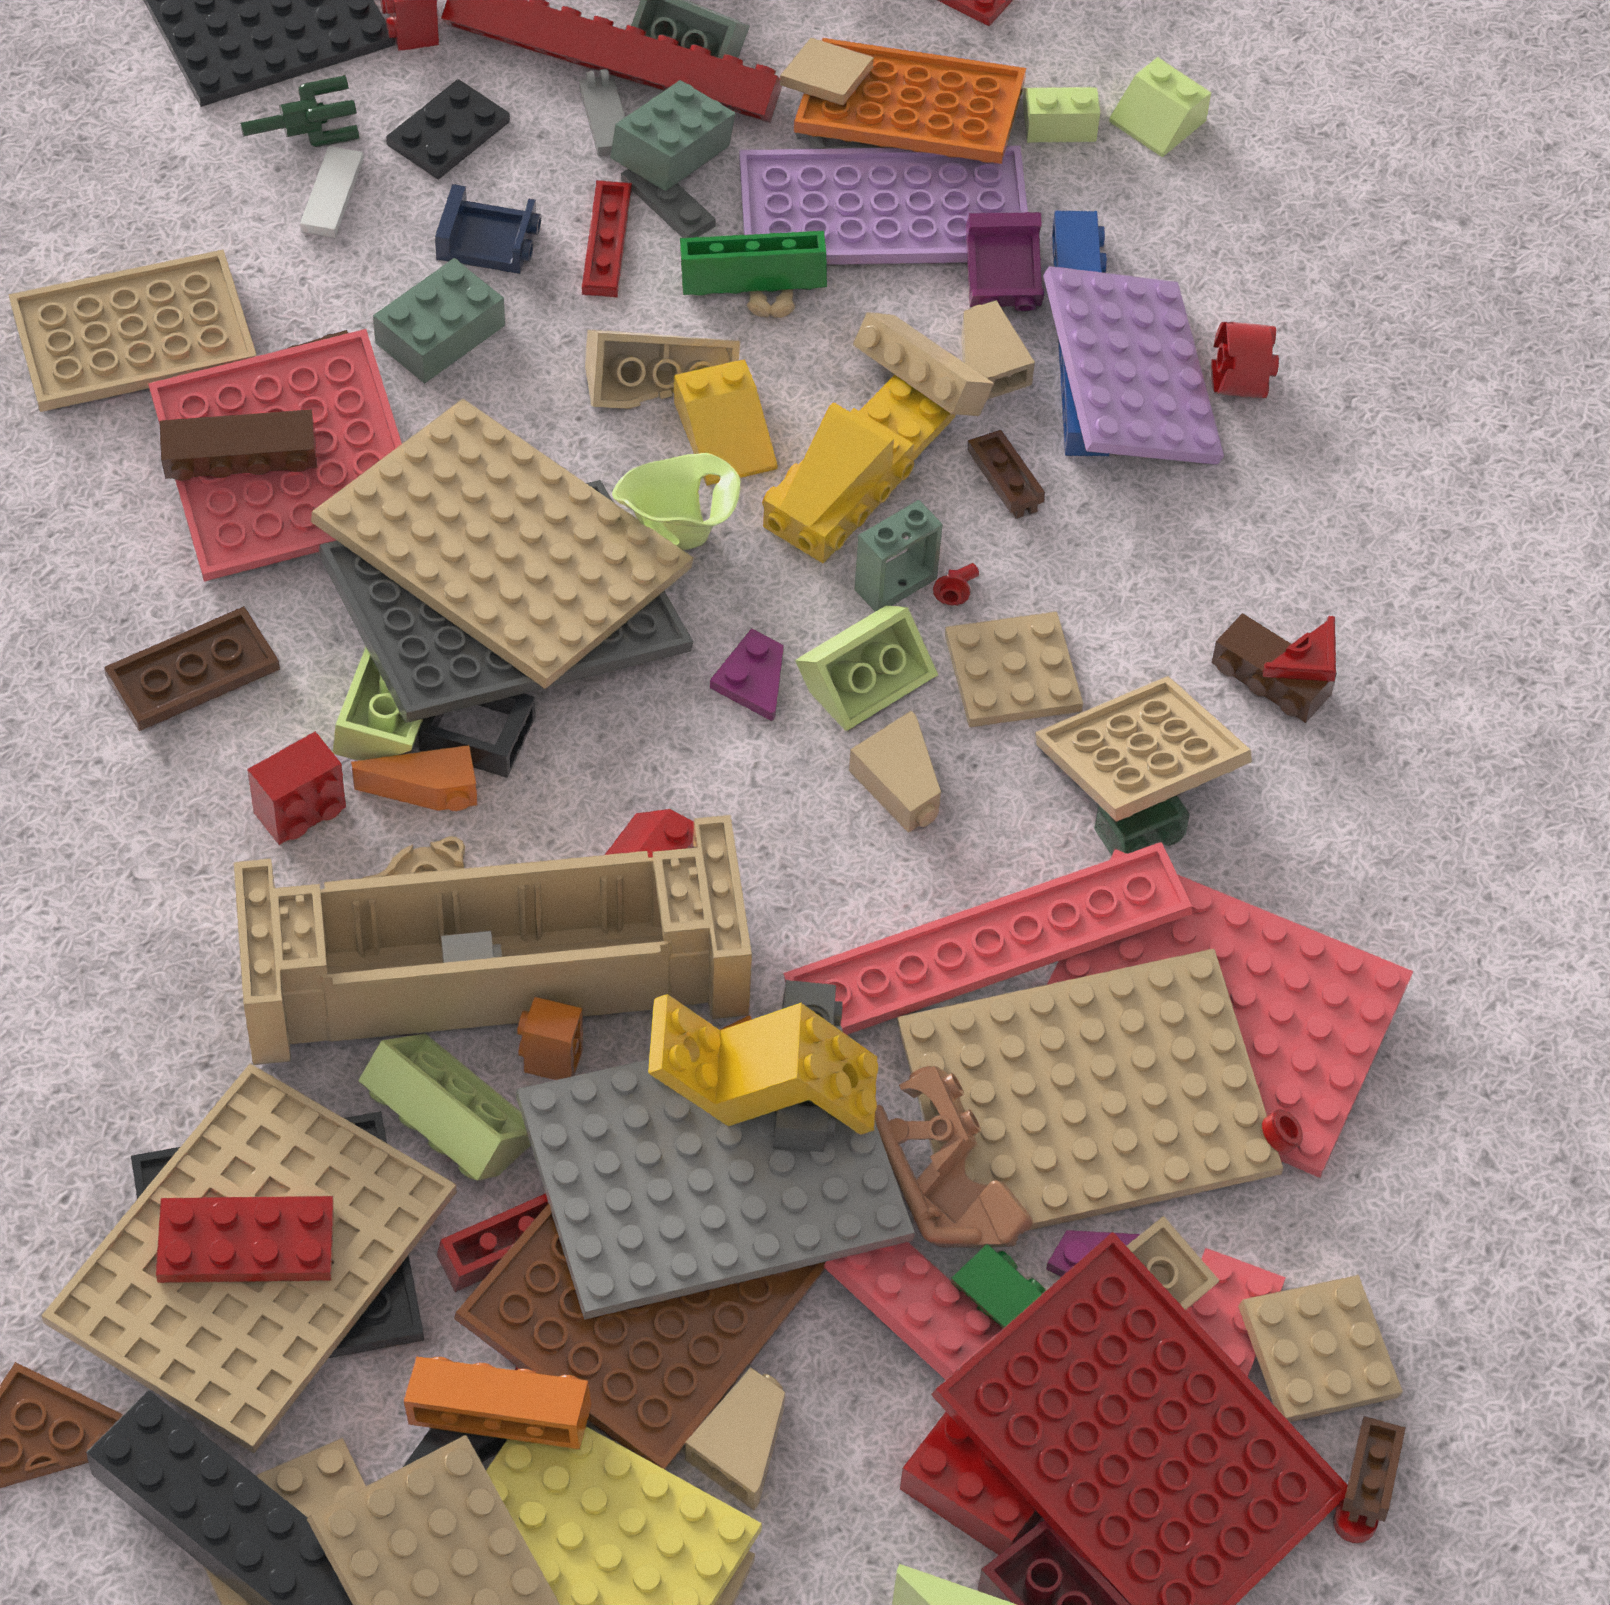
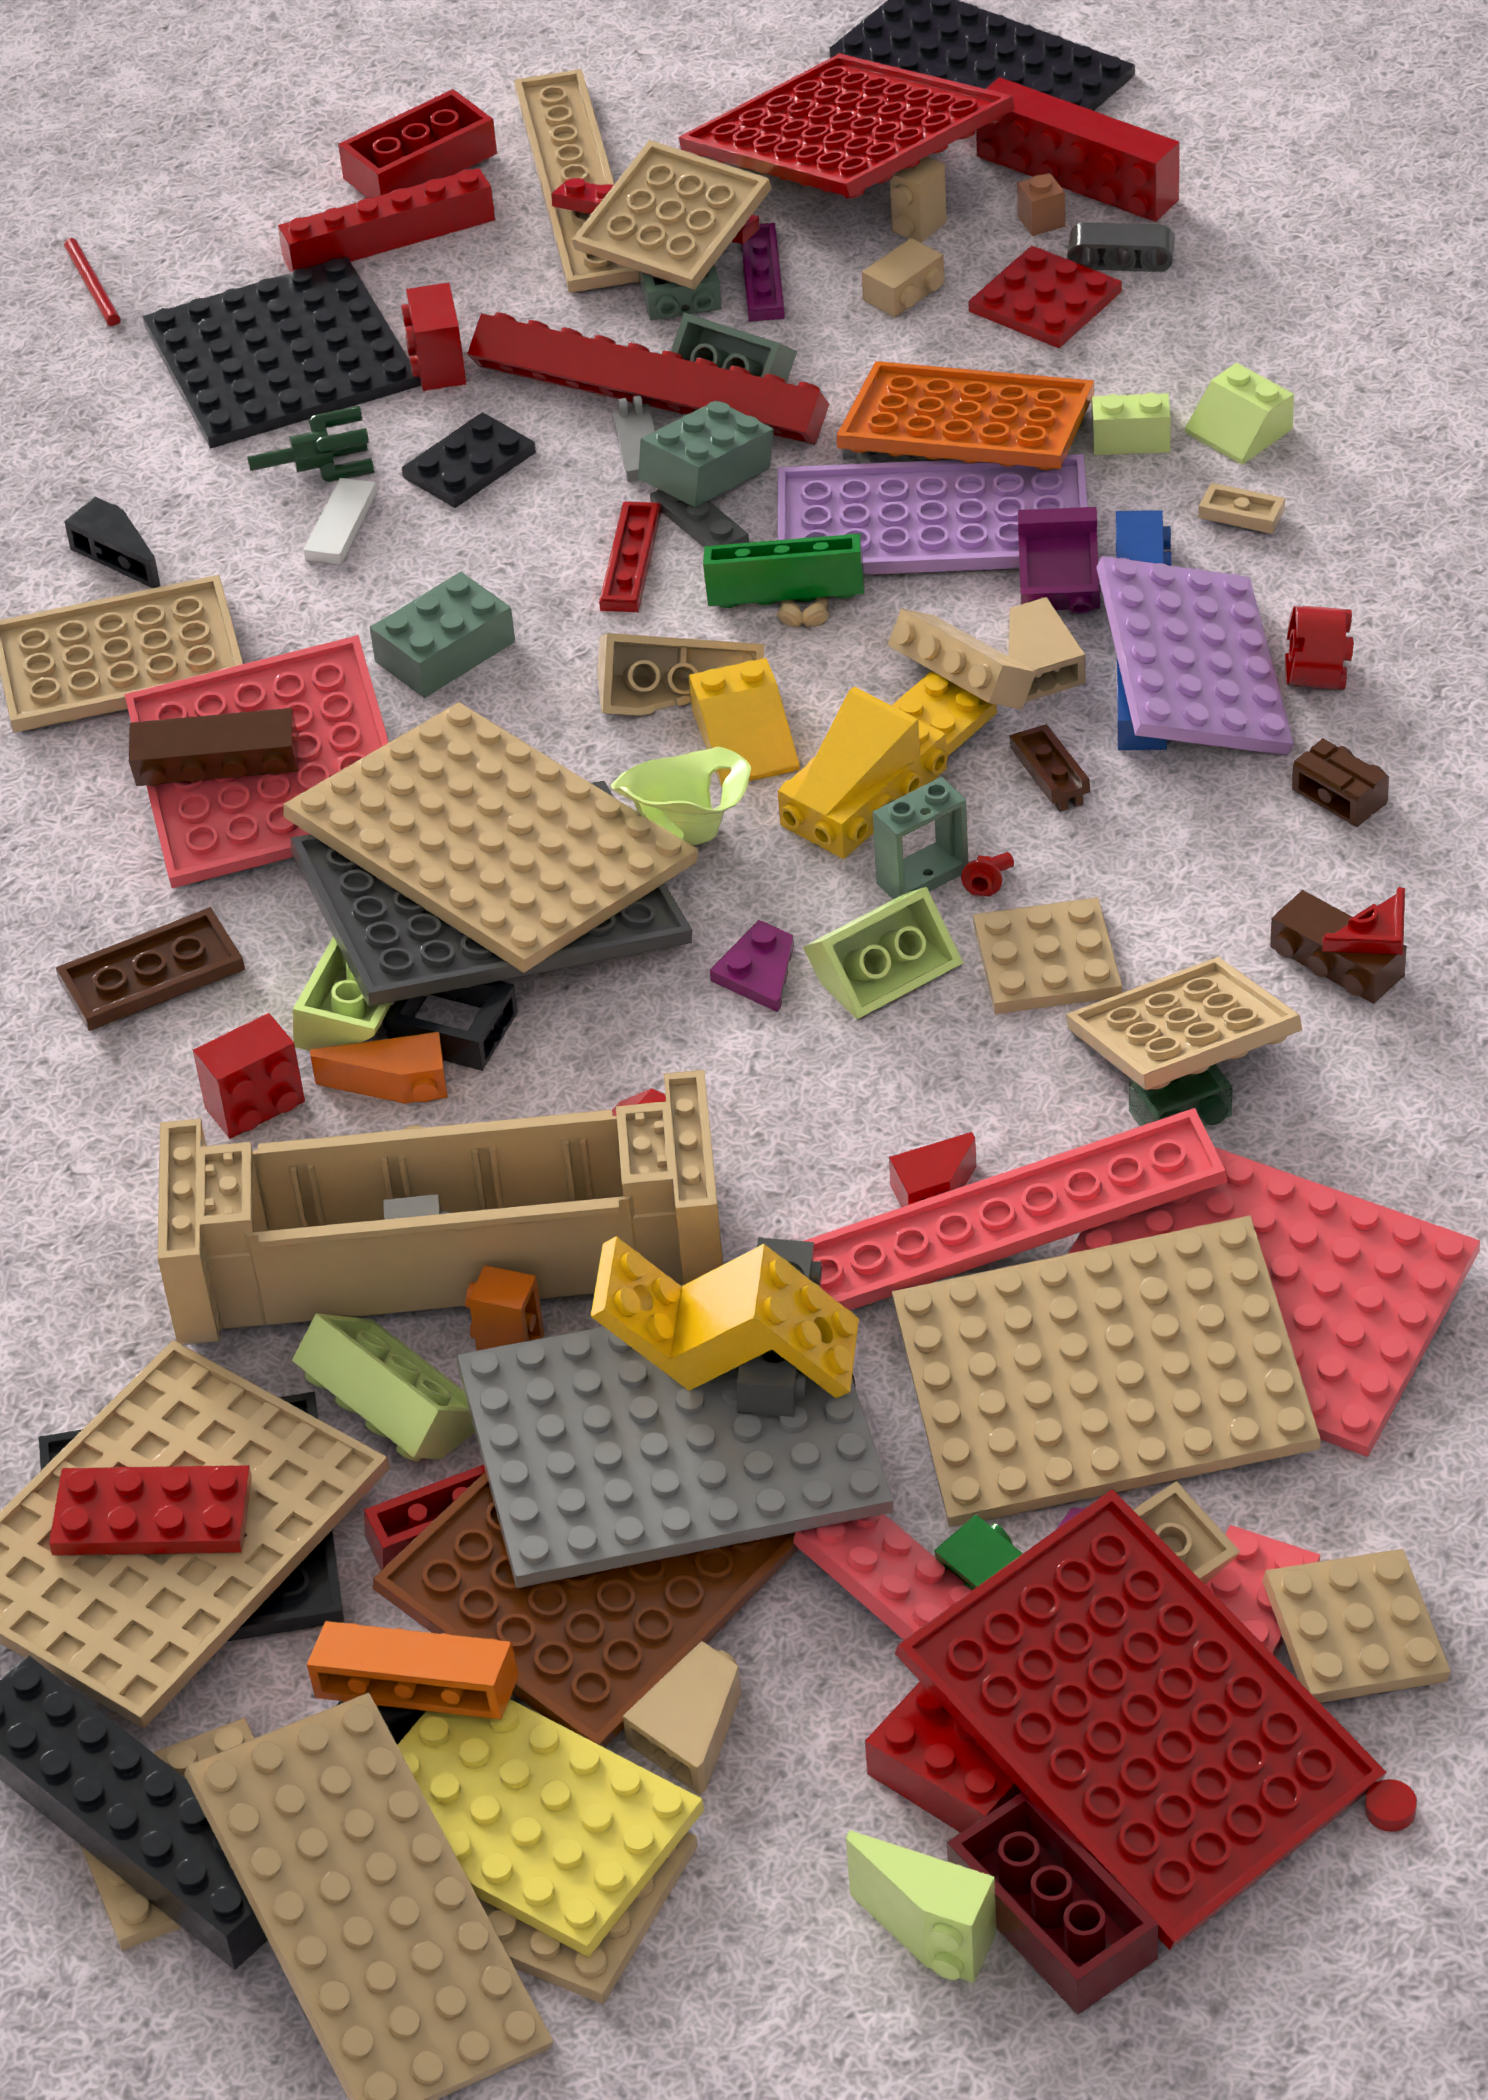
camera: 10 degrees right, 10 degrees down
(114, 204) = (110, 538): none -> black slope
(486, 233) = (499, 554): dark blue panel -> none
(826, 71) = (875, 388): tan tile -> none
(899, 772) = (910, 1054): tan slope -> none
(924, 894) = (932, 1169): none -> red slope
(943, 1199) = (932, 1473): nougat piece -> none
(1165, 206) = (1241, 508): none -> tan plate
(1268, 498) = (1340, 782): none -> reddish brown brick
(1282, 1131) = (1320, 1400): red tile -> none
(1373, 1470) = (1411, 1751): reddish brown hinge -> none

